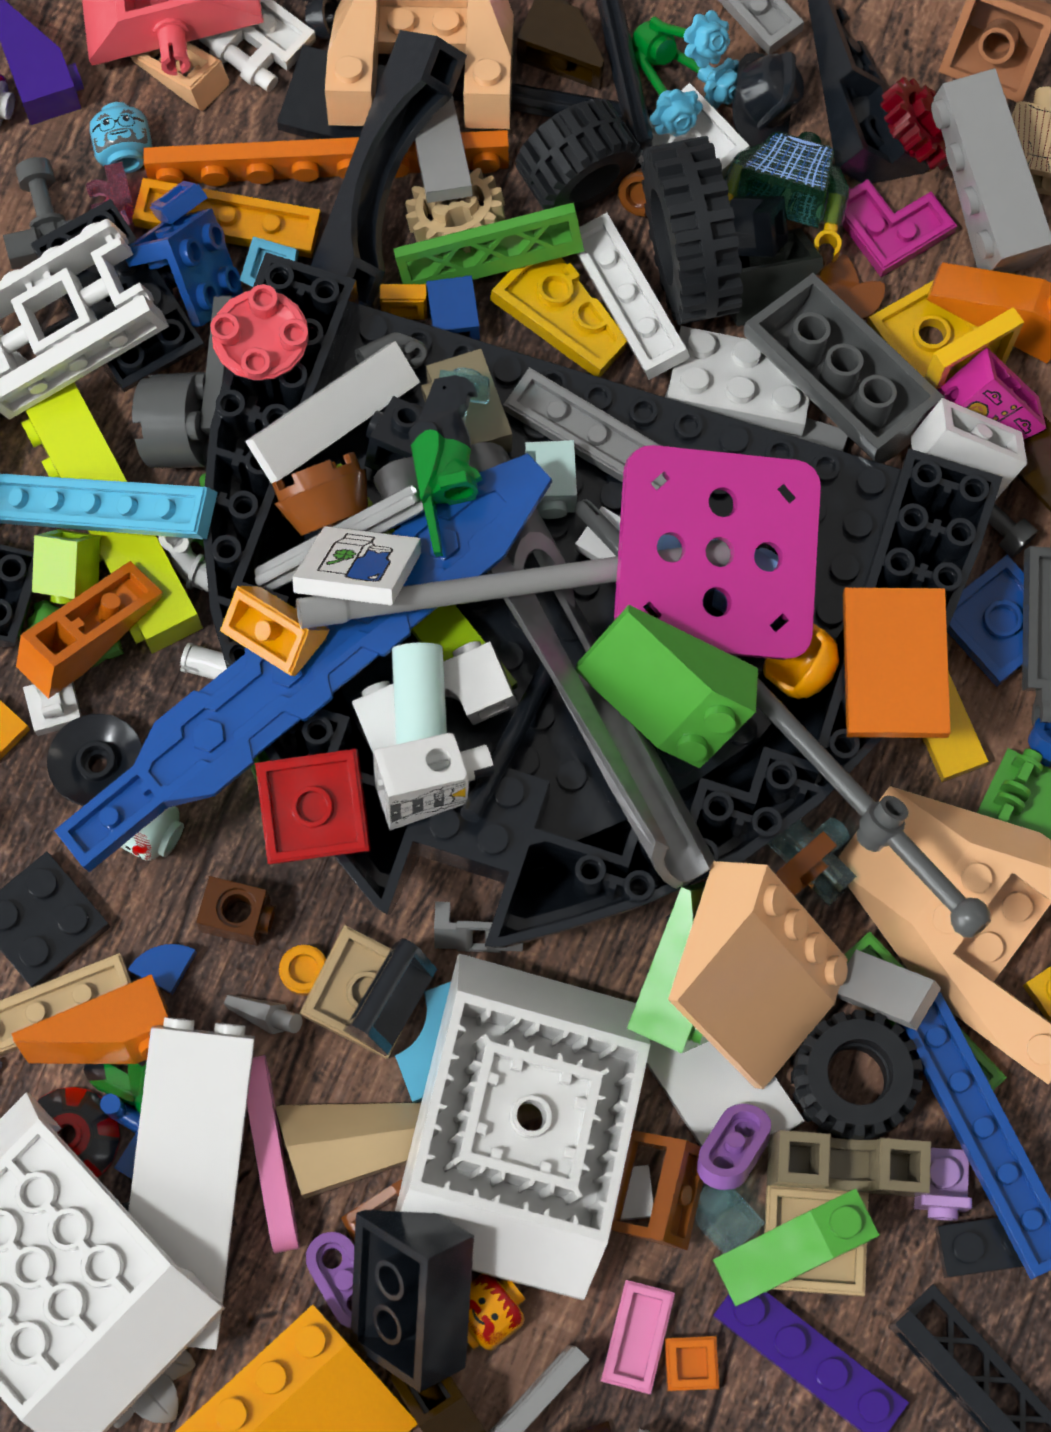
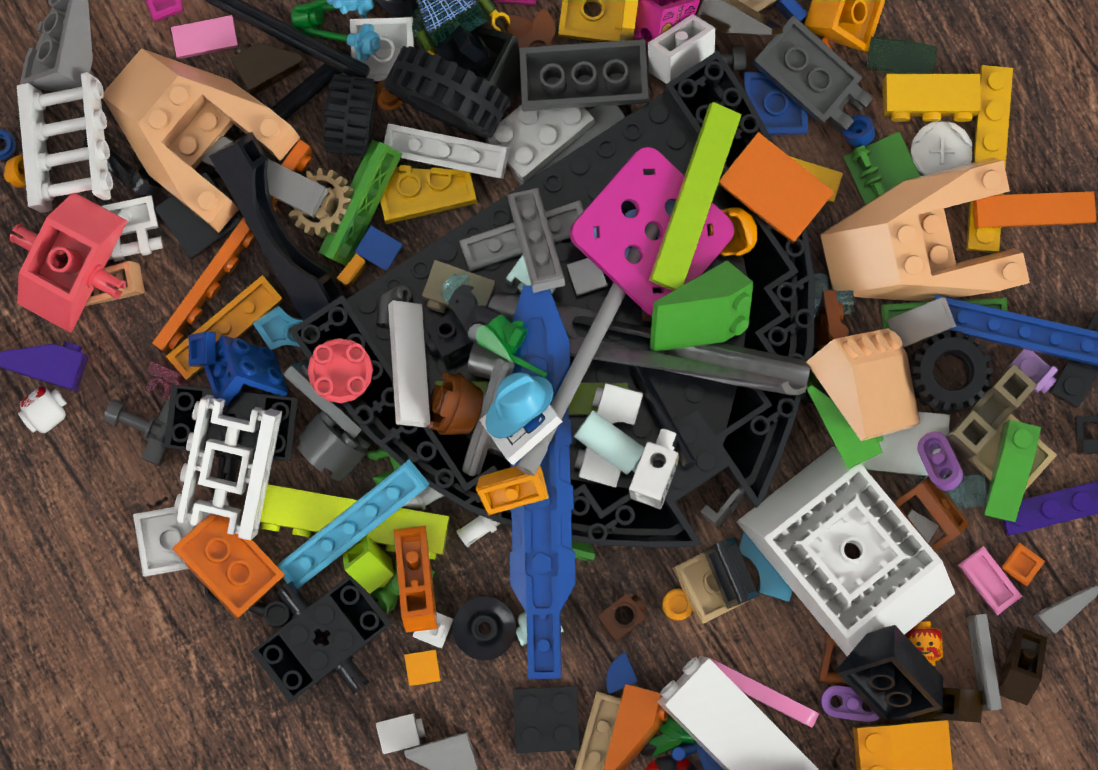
camera: 55 degrees left, 10 degrees up
(120, 136) = (129, 349): medium azure head -> none
(265, 1014) = (685, 641): light grey bar -> none
(312, 806) = (620, 539): red tile -> none
(352, 1141) = (785, 648): tan wedge -> none
(378, 539) = (516, 403): none -> medium azure piece
(596, 438) = (536, 240): none -> light grey tile
(802, 570) = (695, 197): none -> lime tile
(880, 821) = (851, 264): dark grey bar -> none

